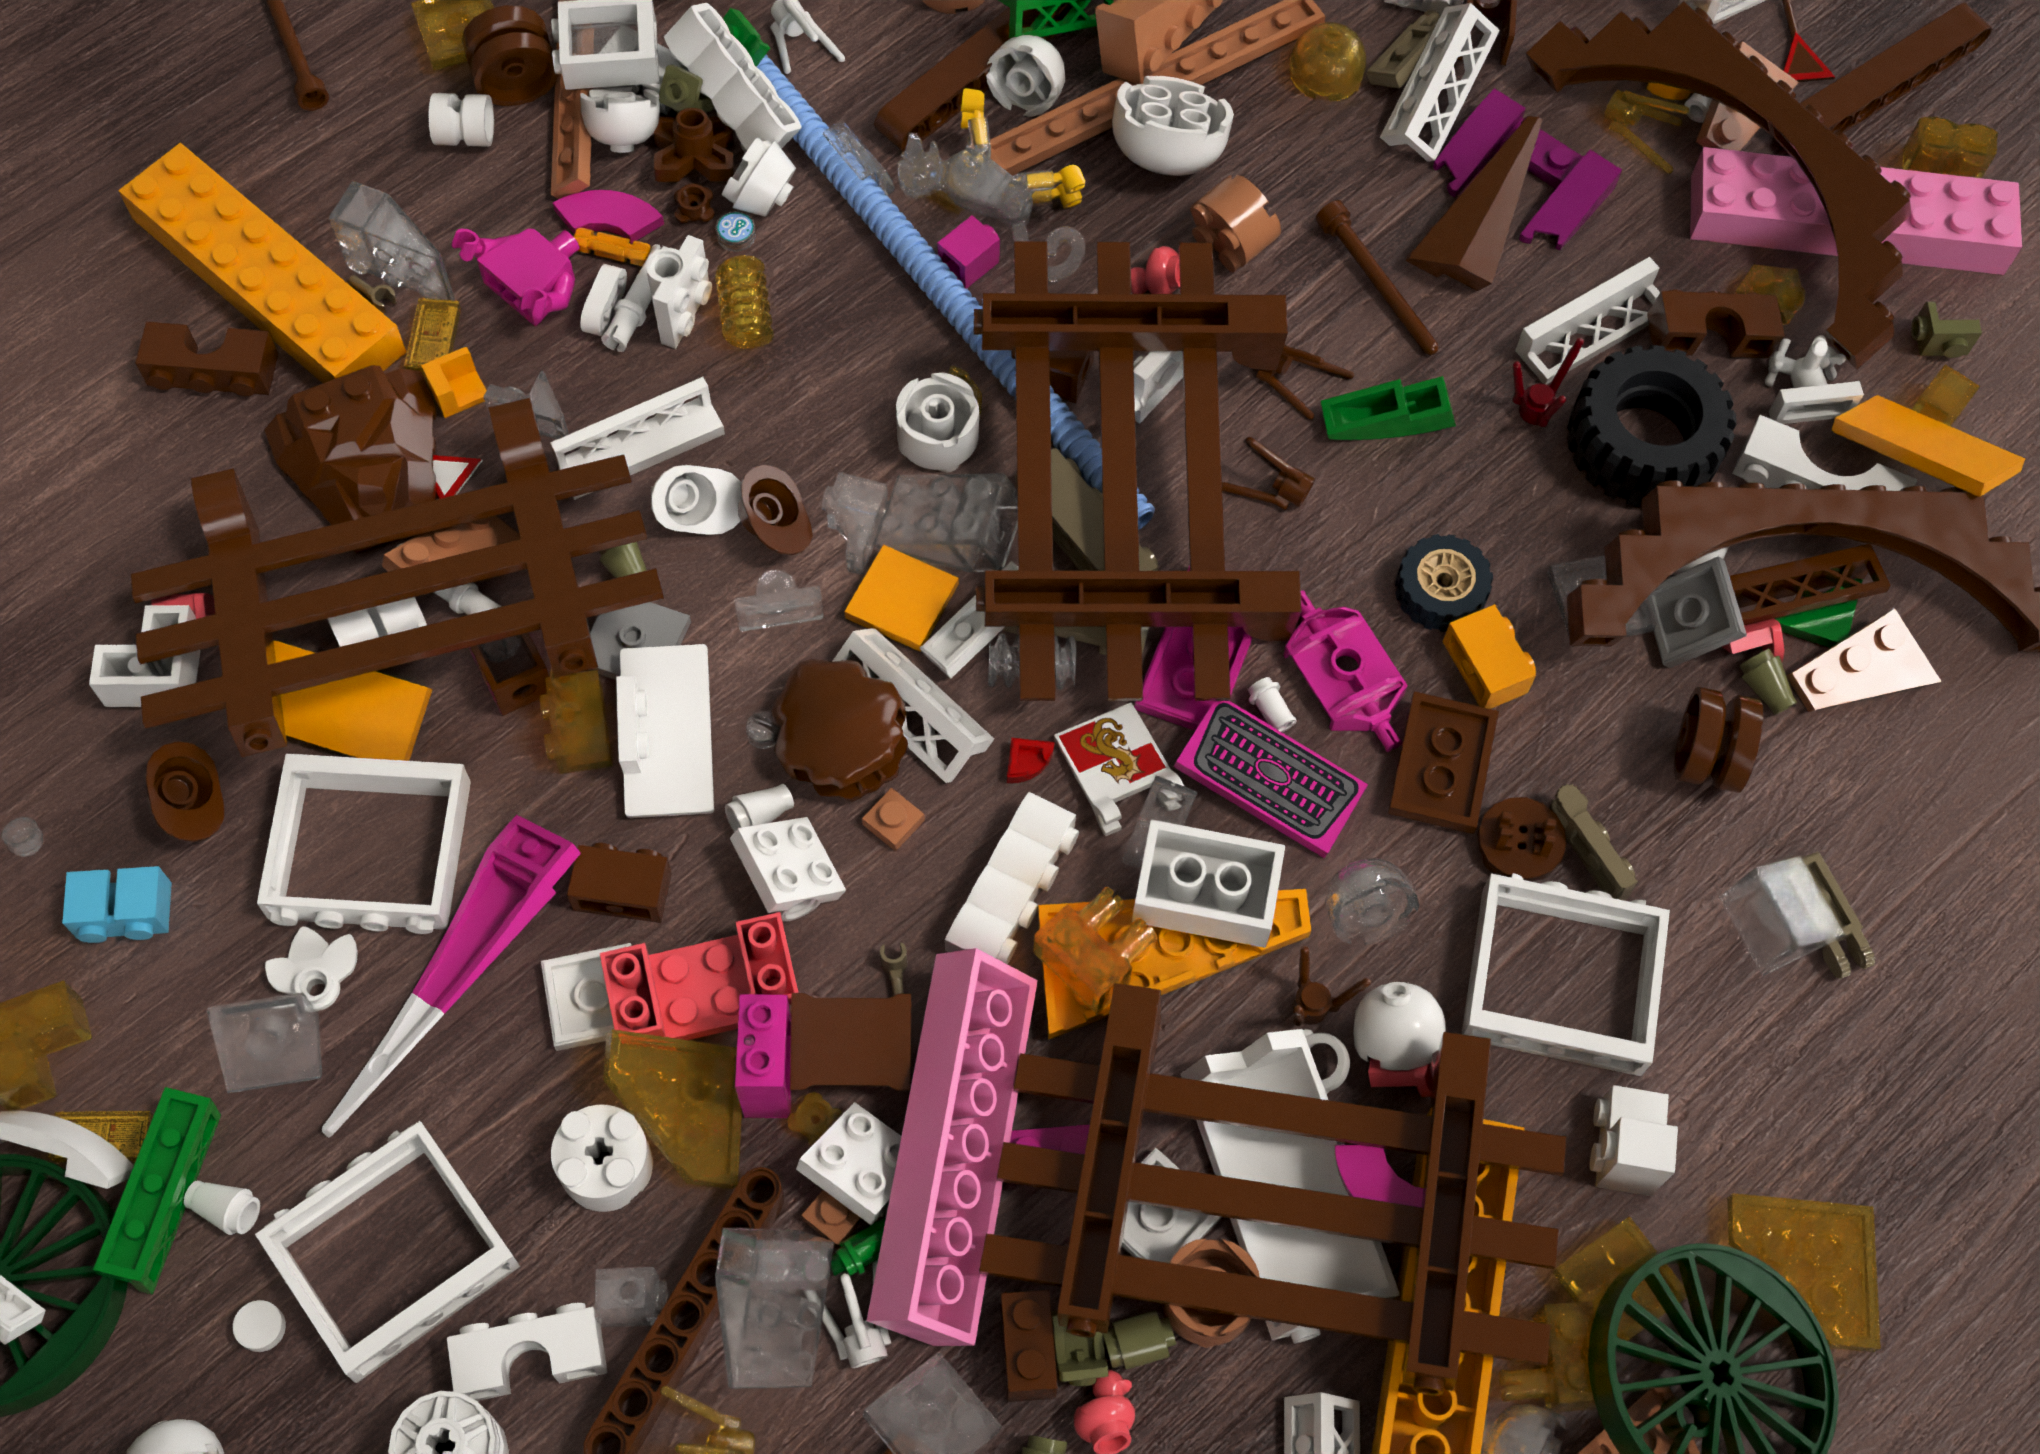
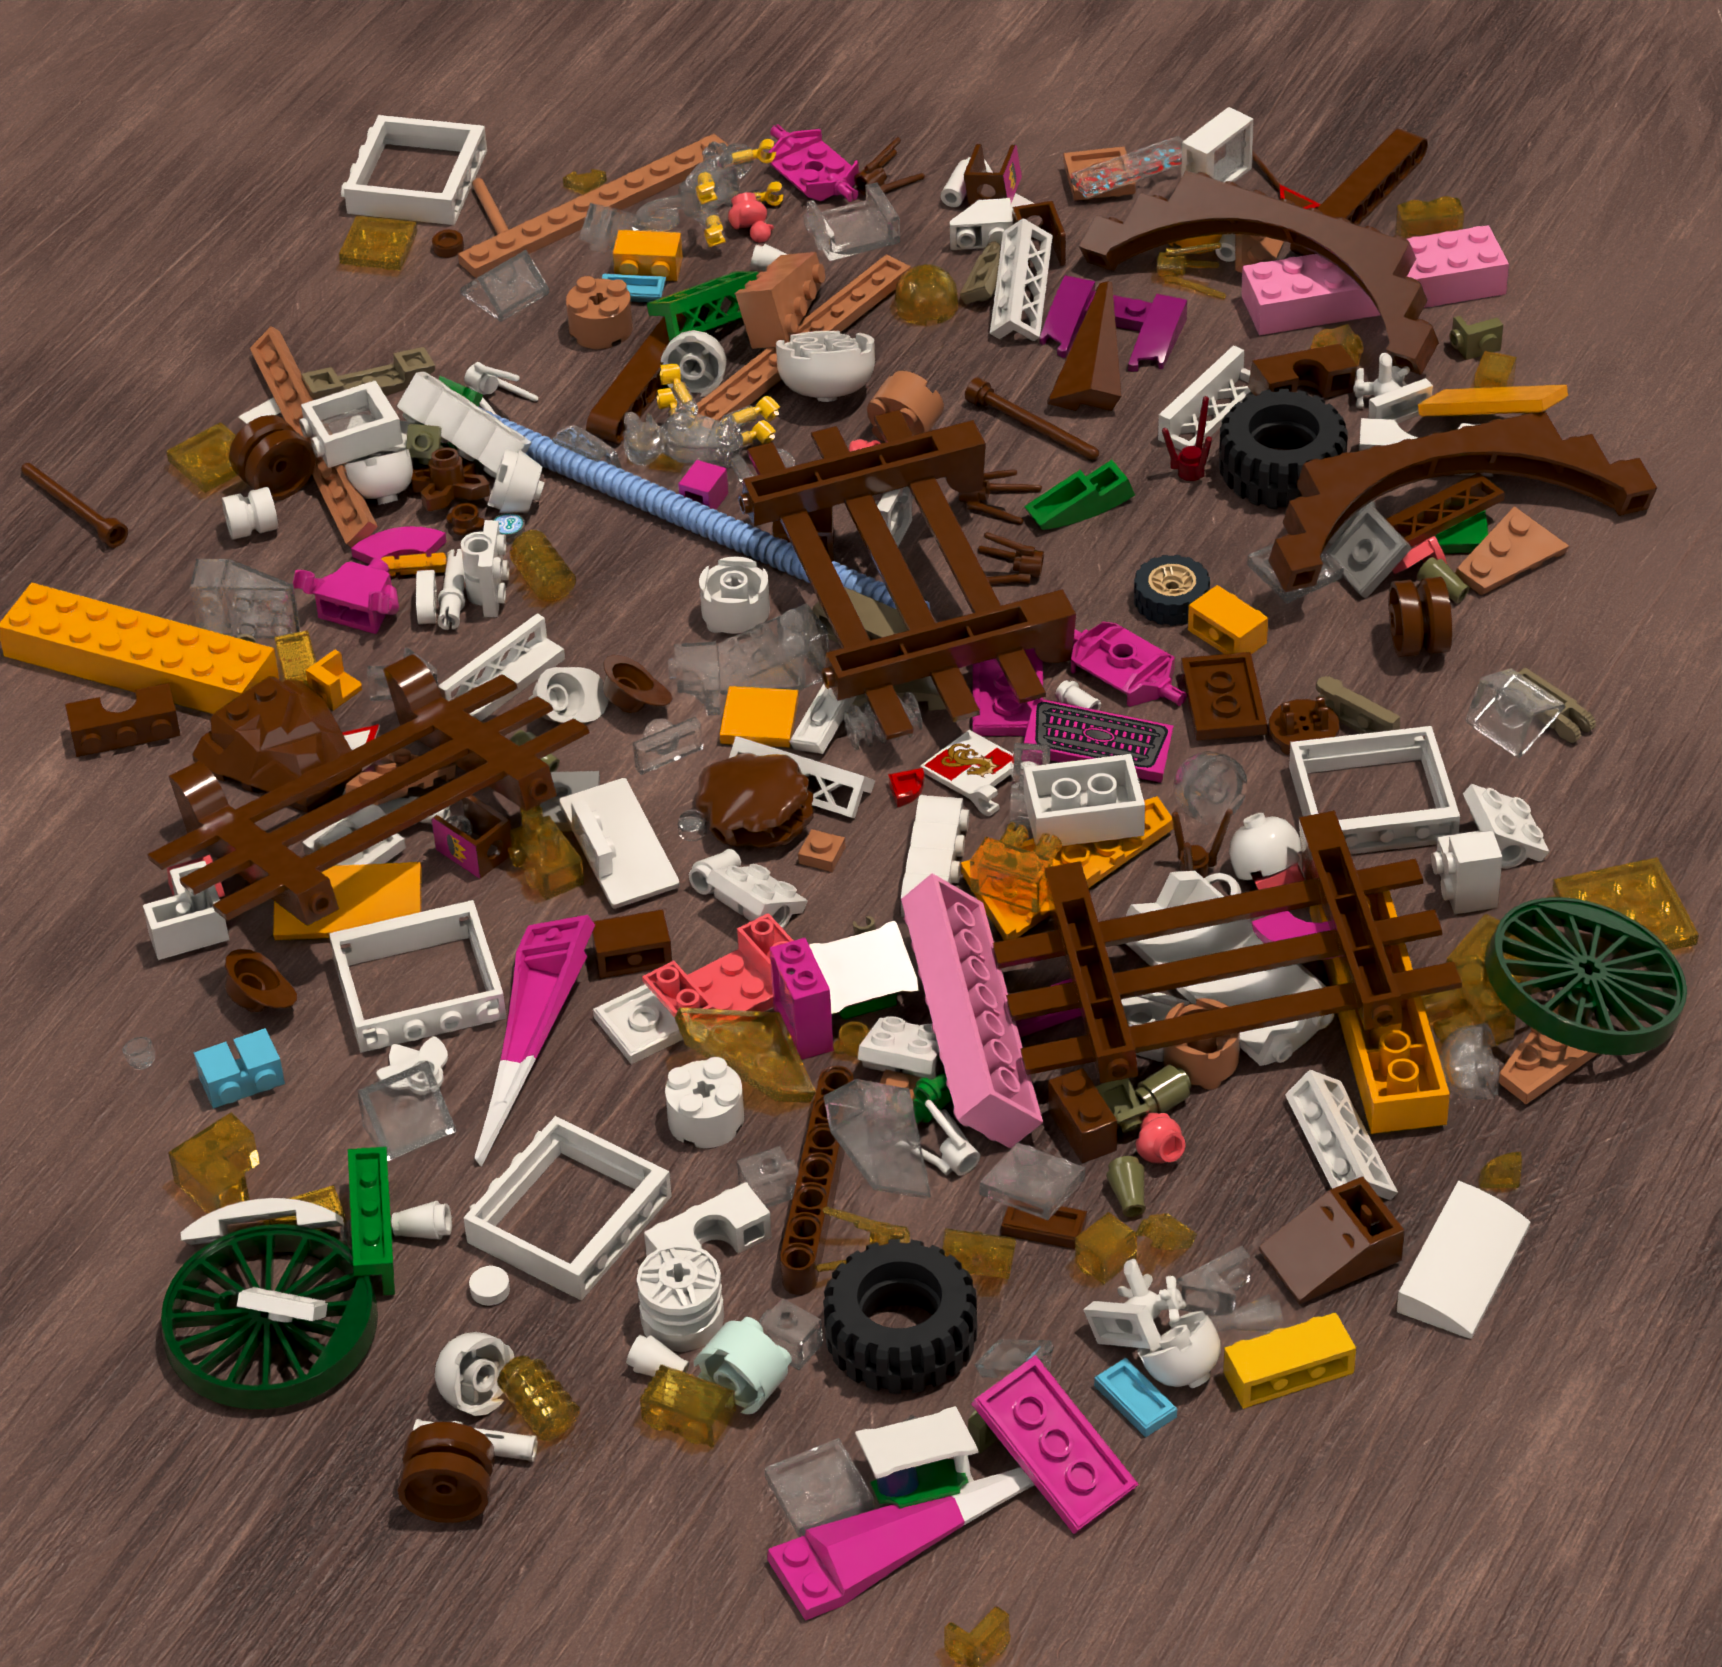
camera: 15 degrees left, 20 degrees down
(1705, 1089) = (1510, 823): none -> white plate

